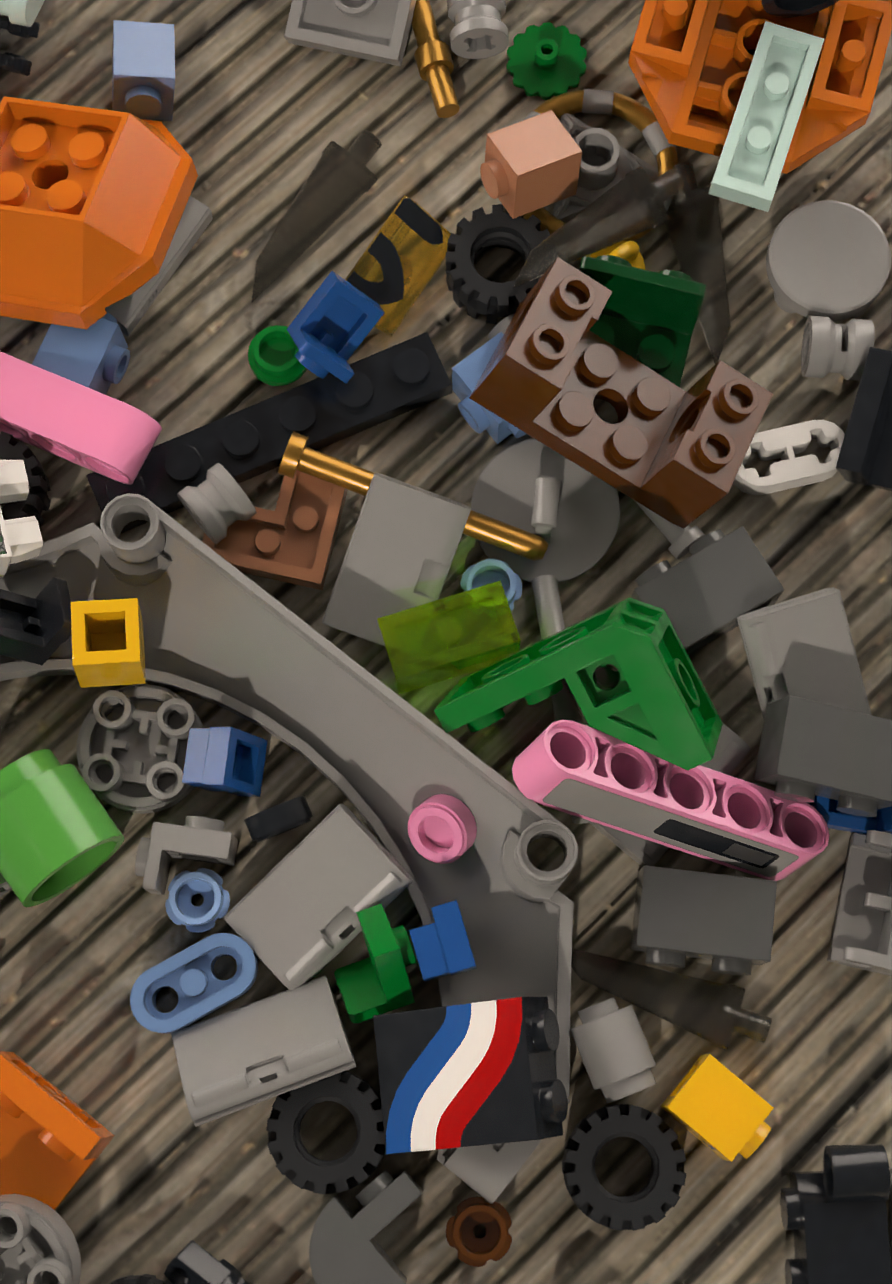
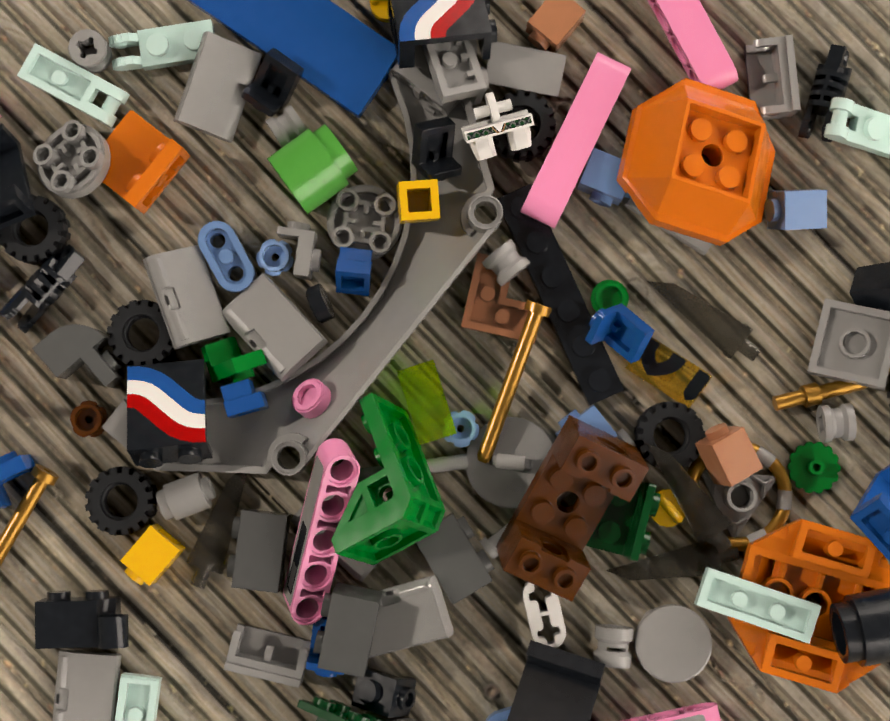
camera: 90 degrees right, 10 degrees up
(394, 556) = (475, 371): light grey piece -> none

